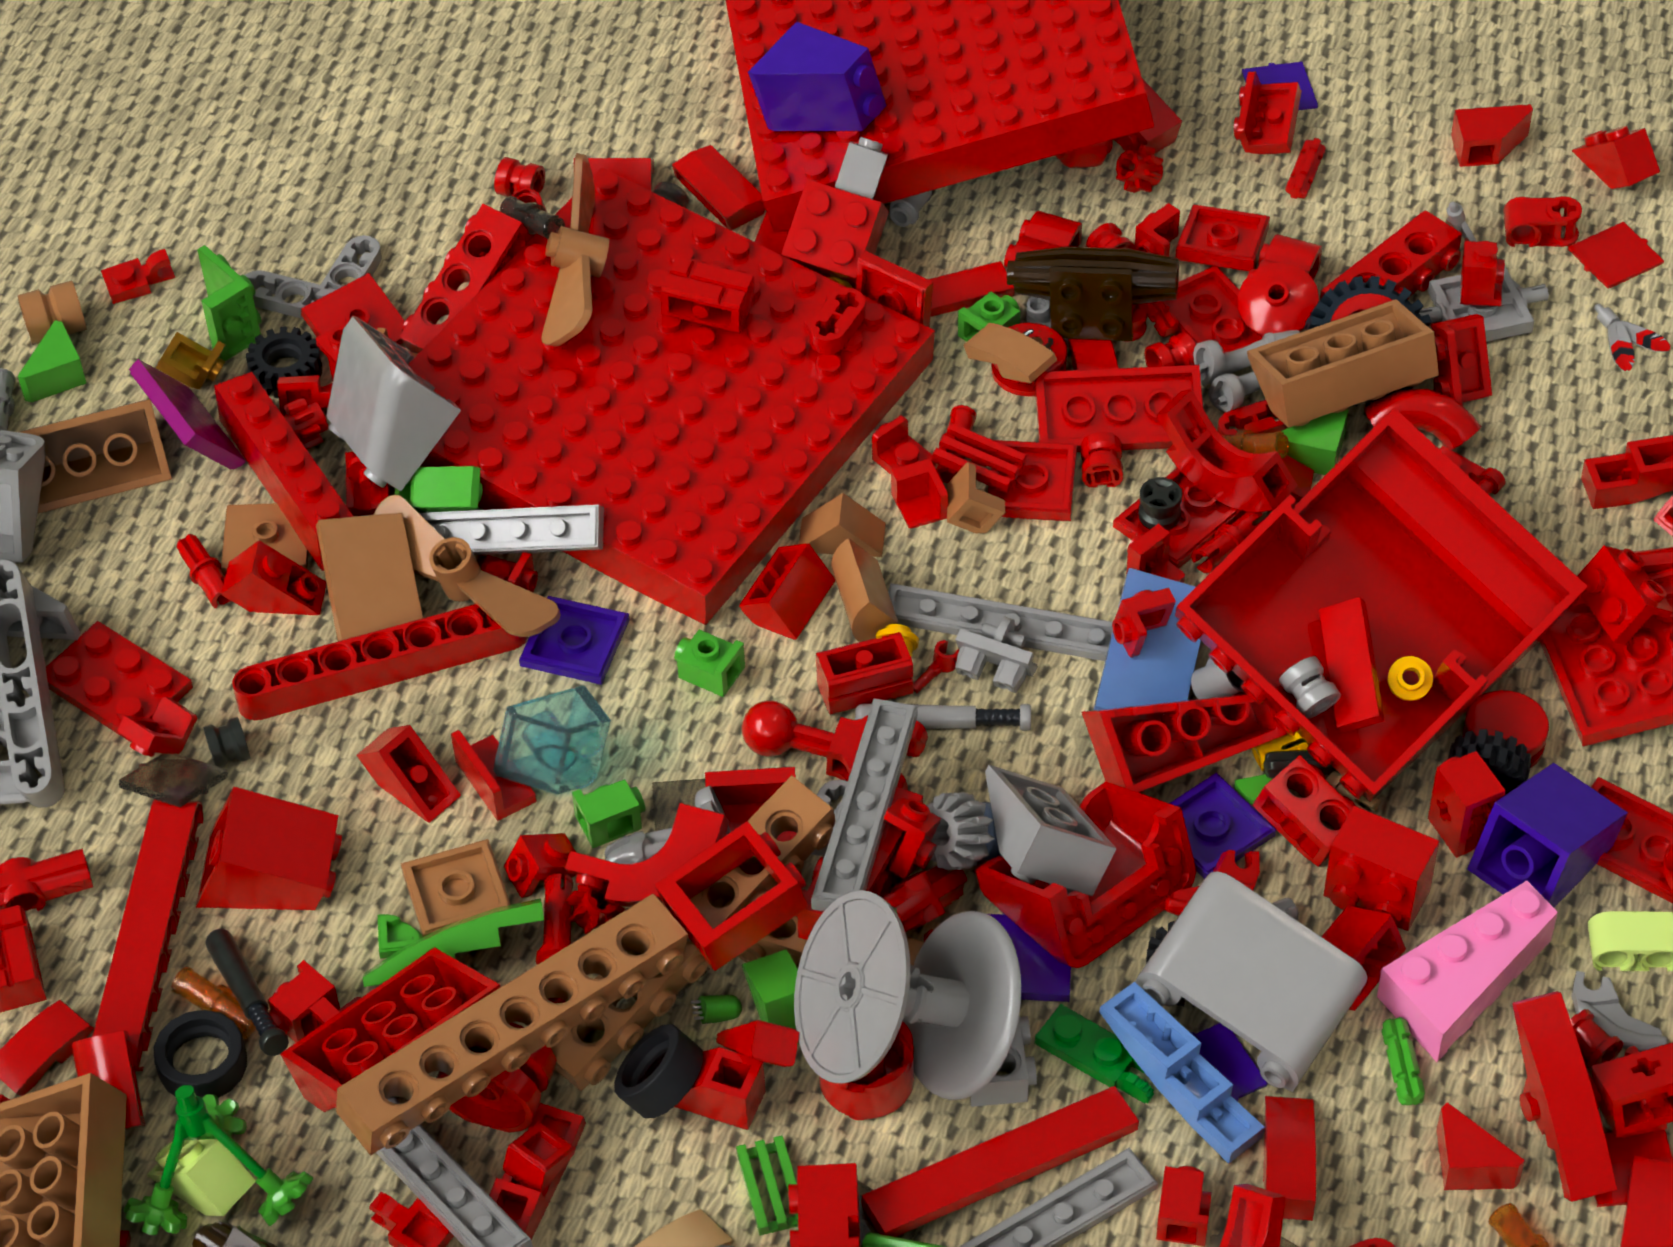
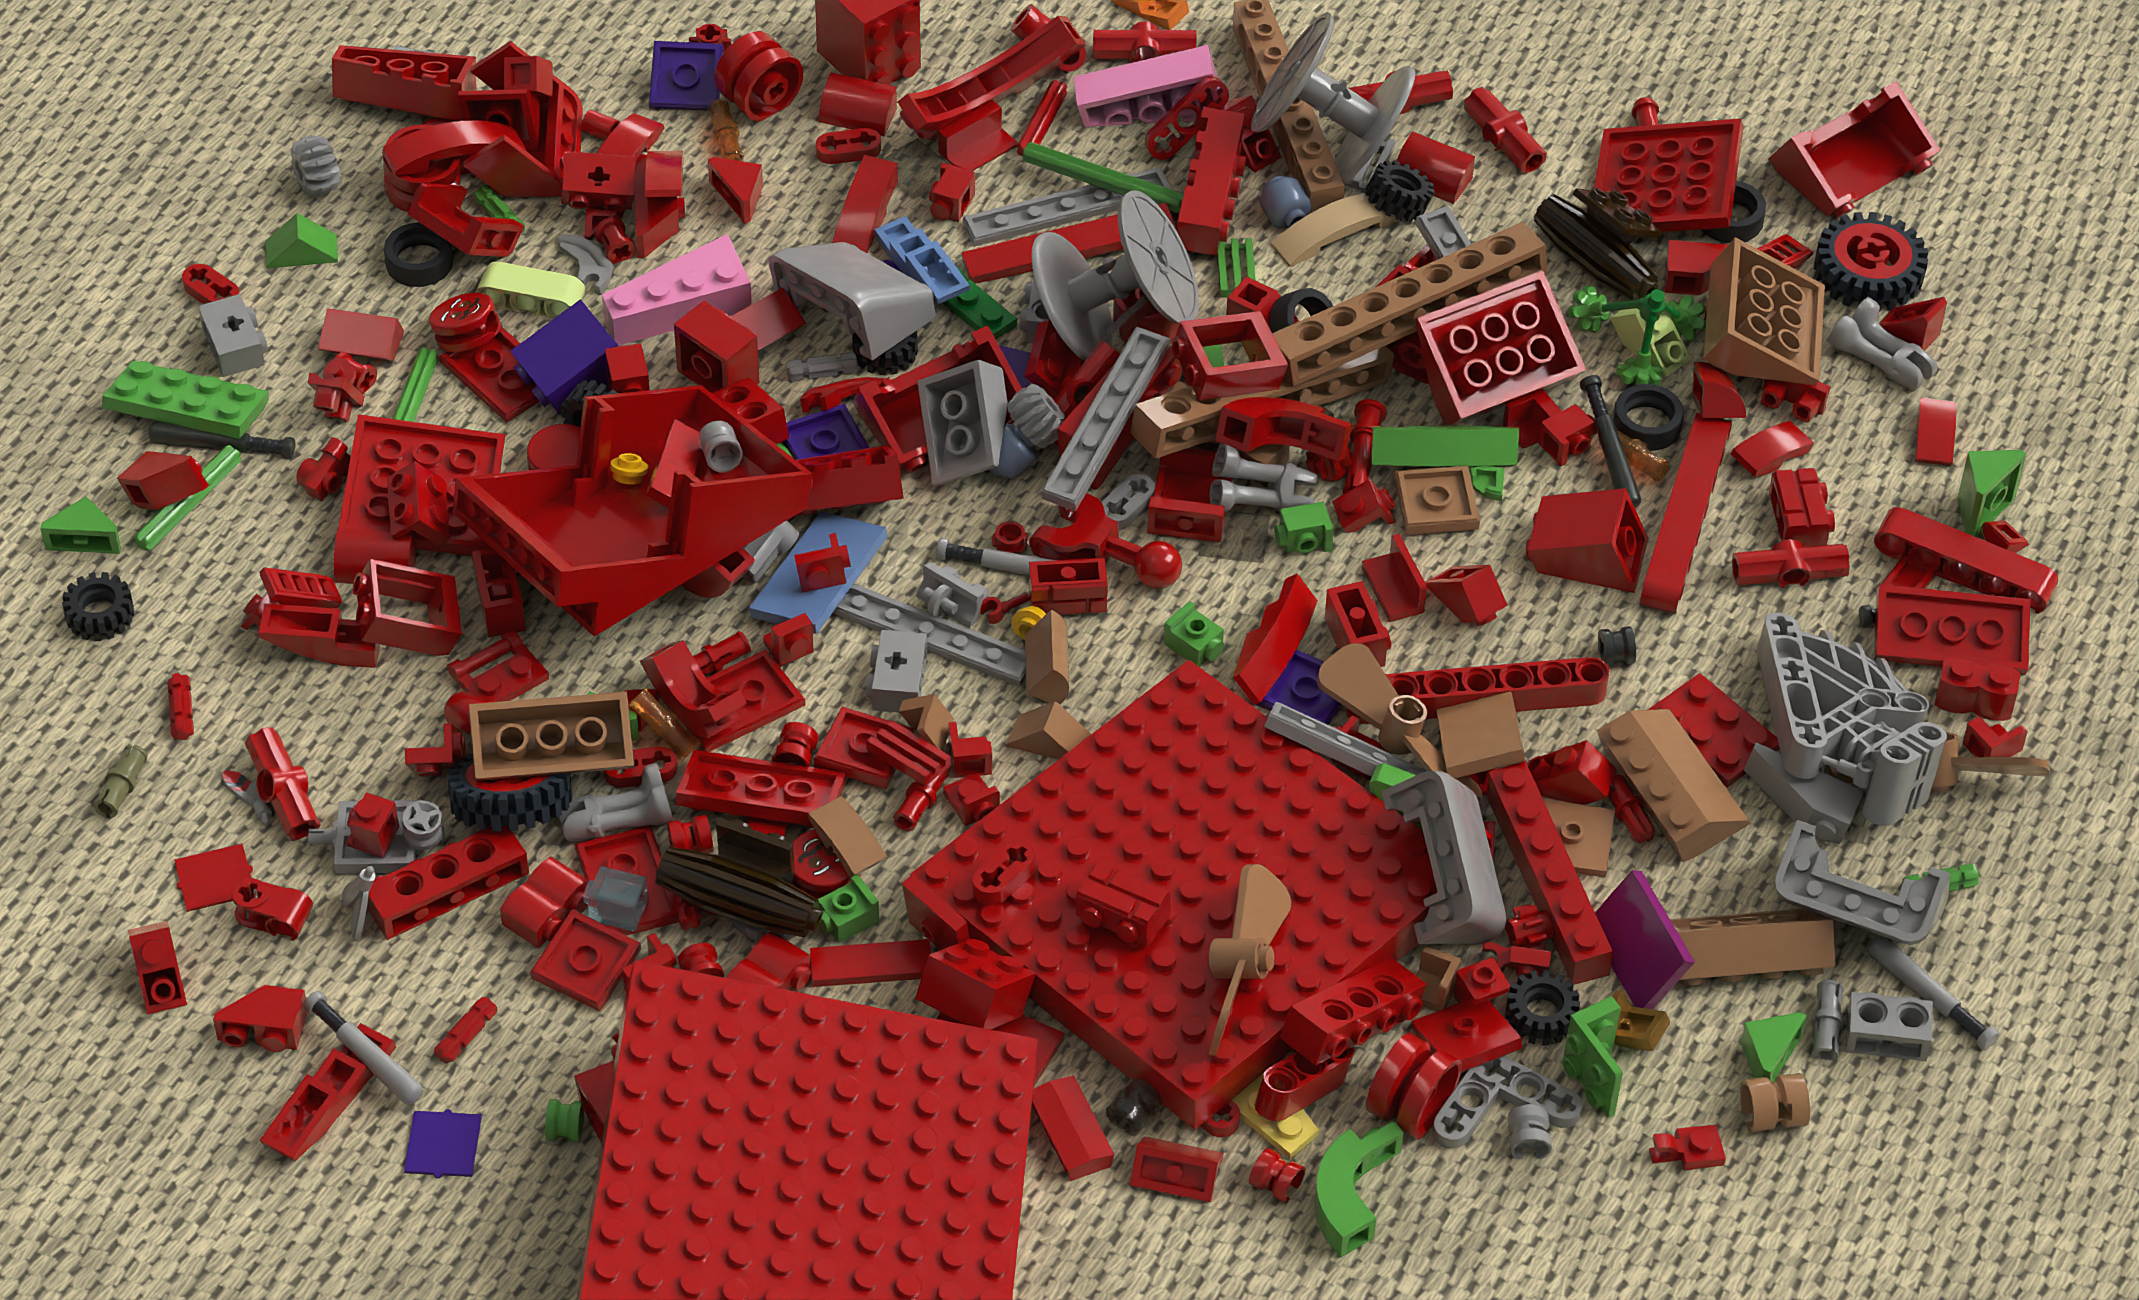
camera: 170 degrees left, 0 degrees up
(160, 589) = (1672, 780): none -> medium nougat slope
(163, 733) = (1676, 661): red bracket -> none
(173, 779) = (1663, 621): clear smoke piece -> none
(288, 252) = (1529, 1130): none -> light grey wheel
(400, 243) = (1413, 1085): none -> red wheel
(457, 161) = (1338, 1208): none -> bright green arch
(518, 673) = (1355, 619): none -> red brick
(542, 222) = (1278, 1028): clear smoke pin -> none
(553, 741) = (1343, 555): clear light blue slope -> none
(620, 652) = (1276, 640): none -> red slope
(762, 1042) = (1234, 305): red slope -> none
(788, 590) = (1113, 686): red brick -> none
(817, 83) = (954, 1079): dark purple slope -> none
(862, 168) = (936, 999): light grey brick -> none
(920, 828) = (1073, 396): red bracket -> none
(951, 733) = (1012, 531): none -> red plate
(1023, 557) = (898, 669): none -> light grey brick
(1160, 503) = (766, 673): pearl dark grey wheel -> none
(1182, 104) = (564, 1120): none -> bright green wheel
(1214, 271) = (616, 898): none -> clear light blue brick
(1267, 116) = (476, 1084): red bracket -> none
(1270, 315) = (568, 857): red dish -> none
(1381, 120) = (377, 1061): none -> light grey piece
(1399, 98) = (321, 1099): none -> red slope
(1403, 1061) = (755, 257): bright green axle -> none
(1435, 290) = (426, 816): none -> light grey wheel
(1558, 472) = (410, 584): none -> red window
(1599, 324) = (282, 783): none -> red piece

